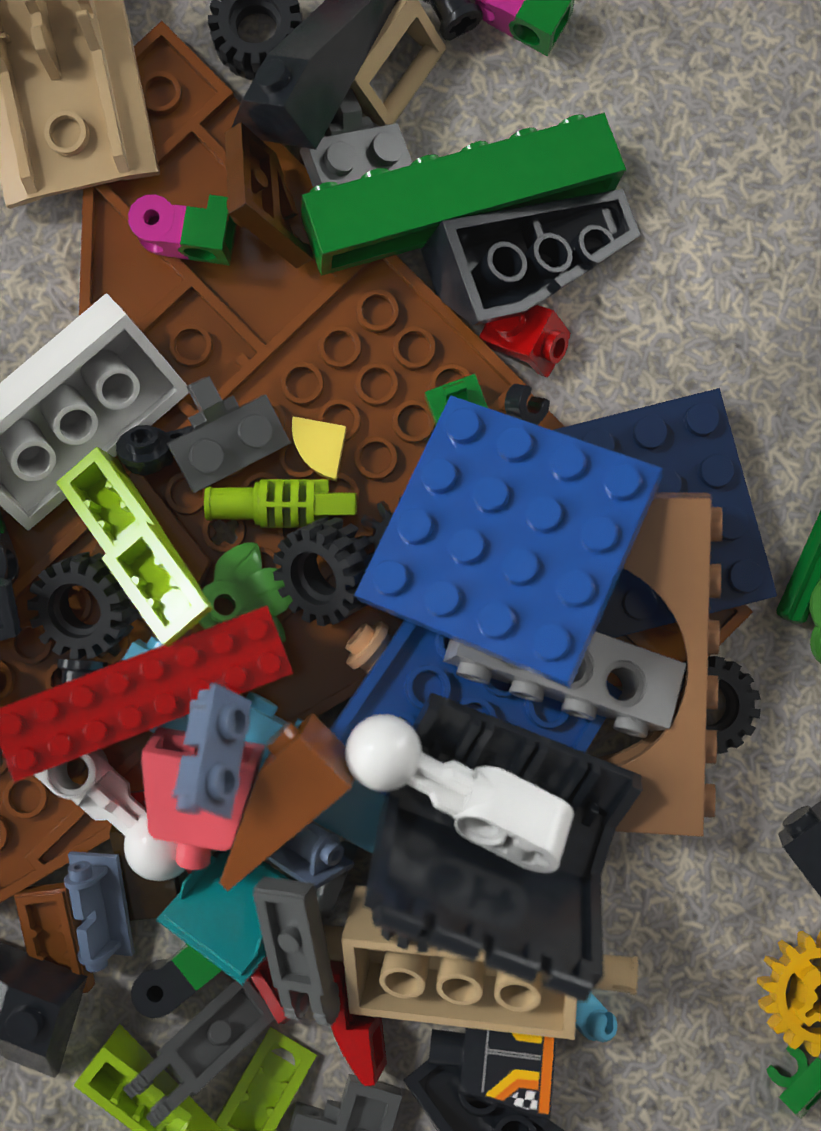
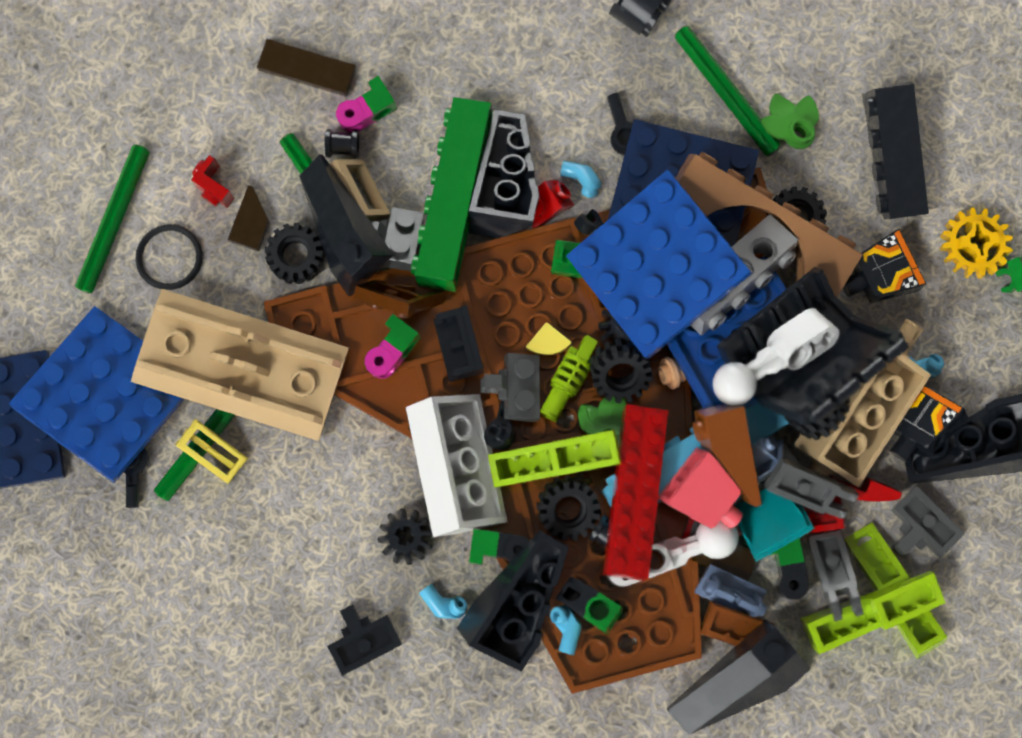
camera: 50 degrees left, 5 degrees down
(219, 729) = (677, 456): sand blue hinge -> none
(246, 321) = (458, 344): none -> black hinge
(598, 367) = (585, 175): none -> medium azure arm
(702, 380) = (622, 128): none -> black plate
(702, 881) = (886, 271): none -> torso

